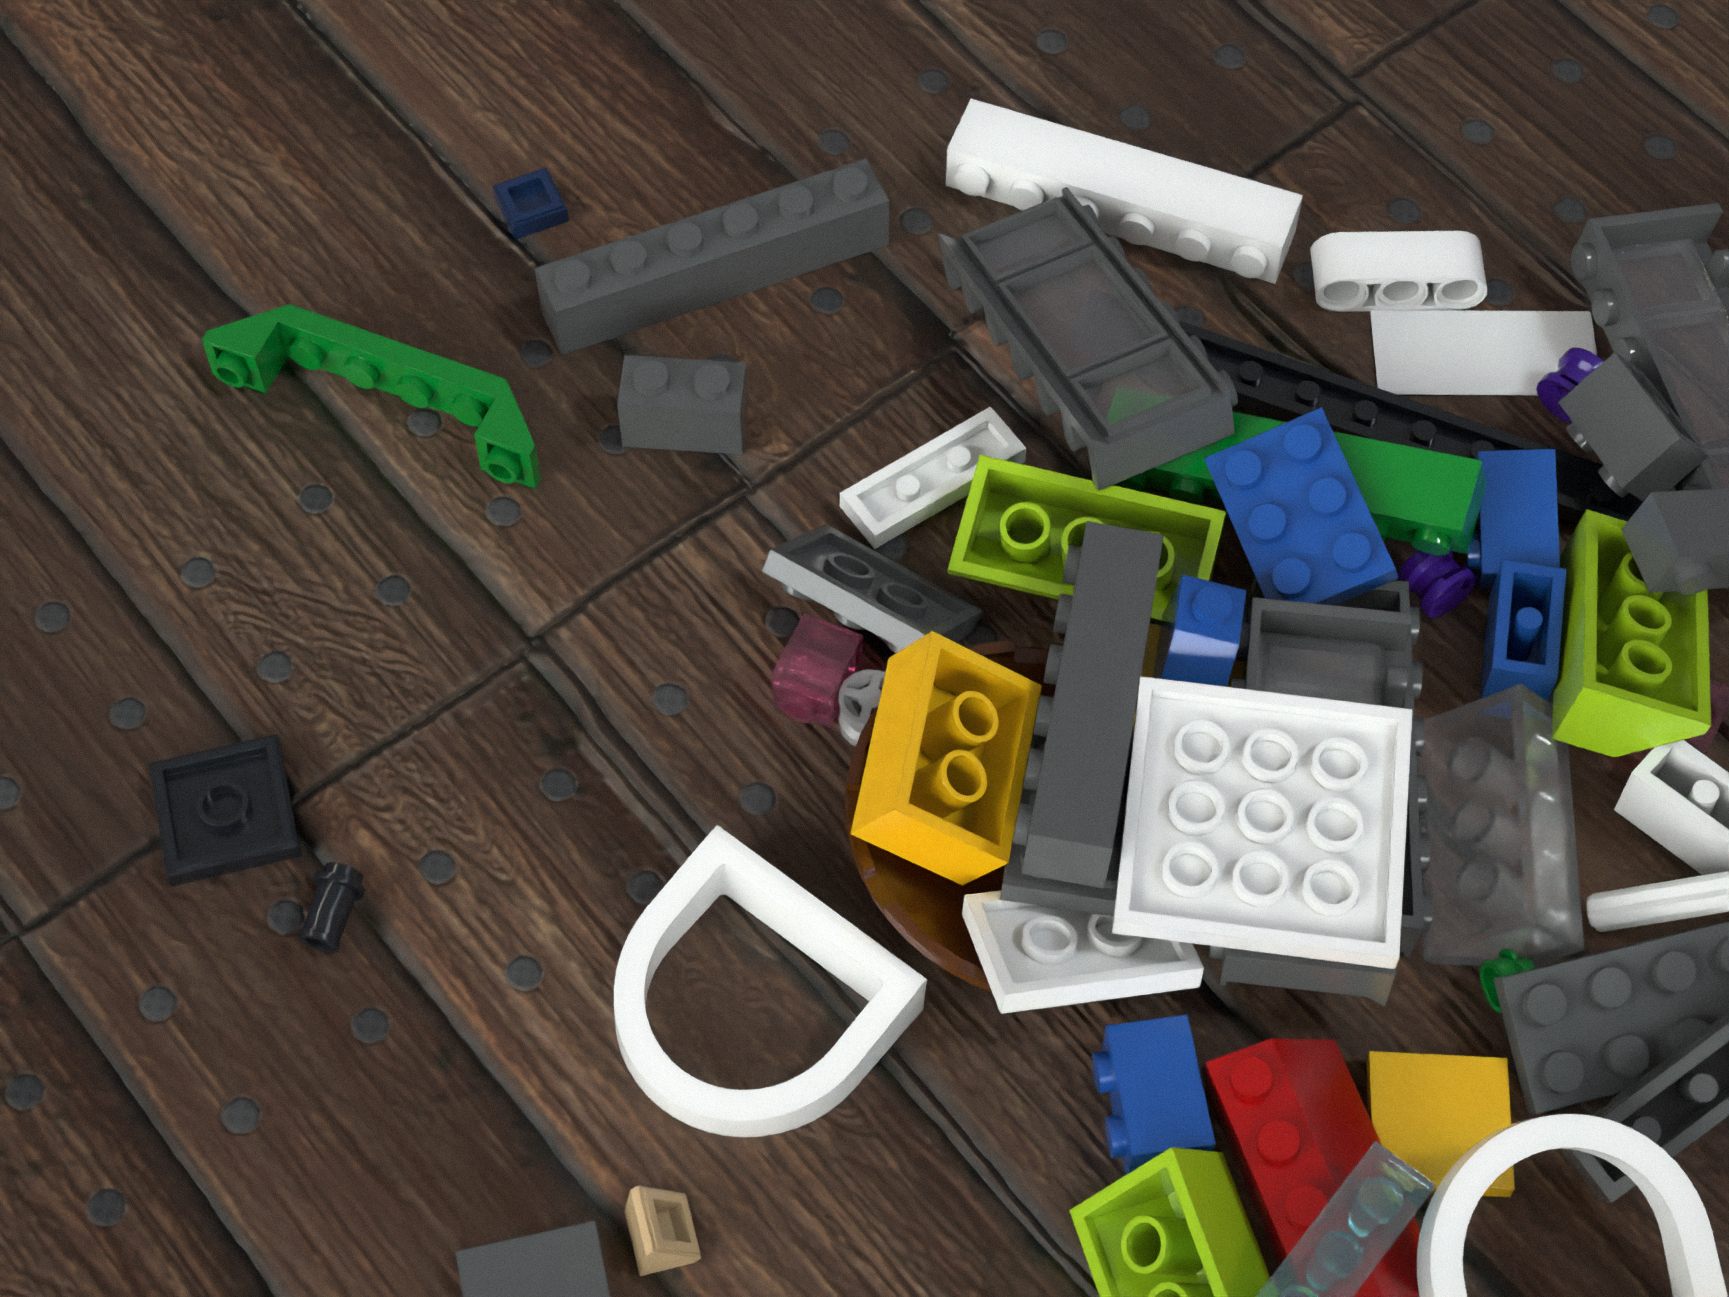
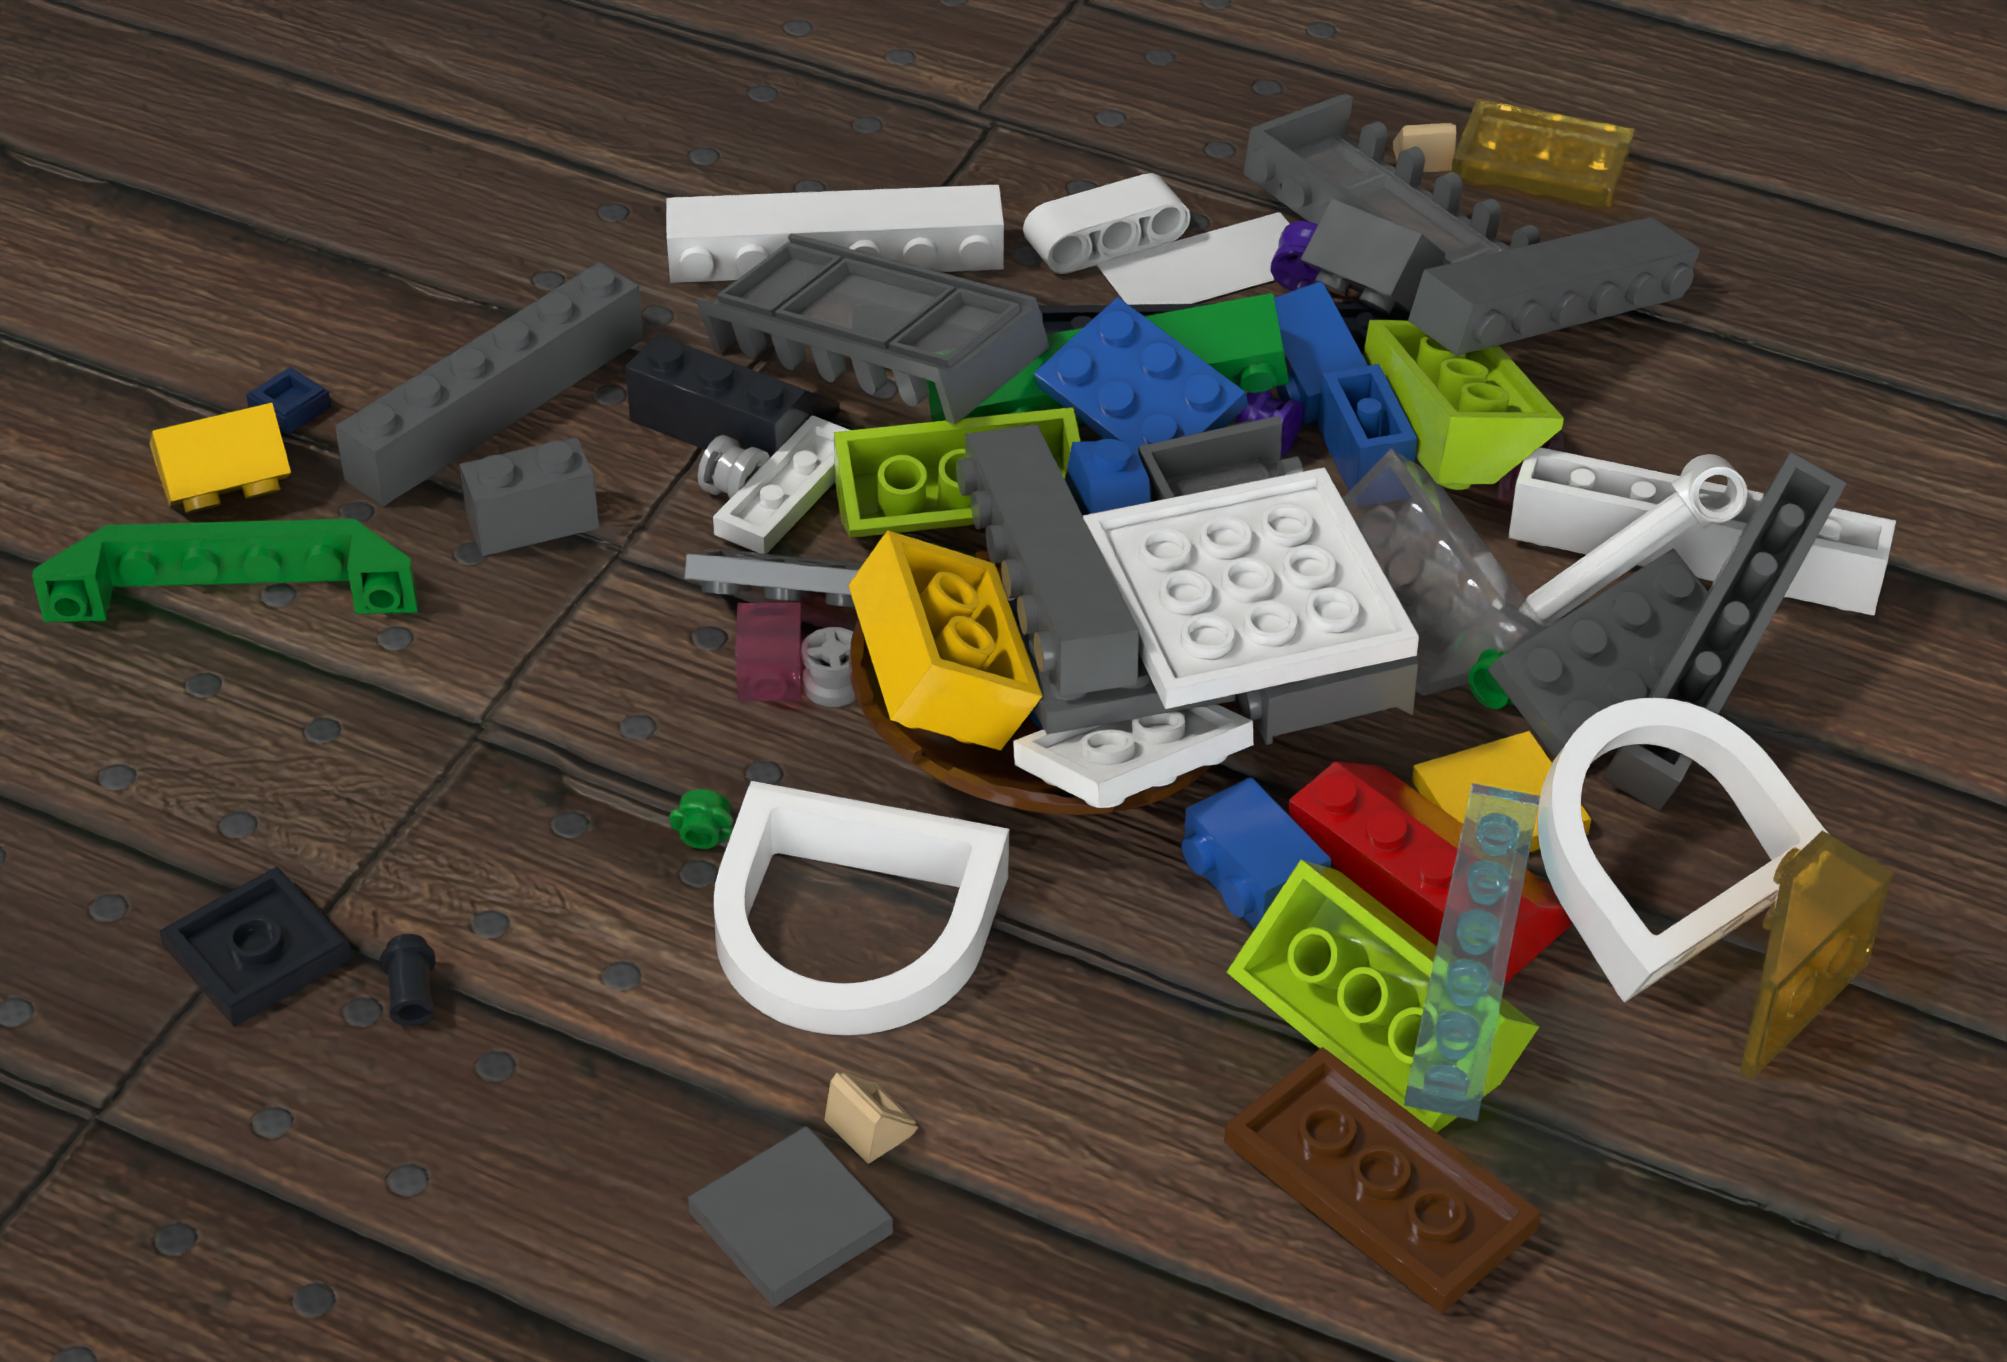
camera: 25 degrees left, 15 degrees down
(431, 255) = (220, 457): none -> yellow slope
(668, 836) = (702, 818): none -> green plate
(883, 437) = (728, 466): none -> light grey wheel
(920, 352) = (706, 396): none -> black slope

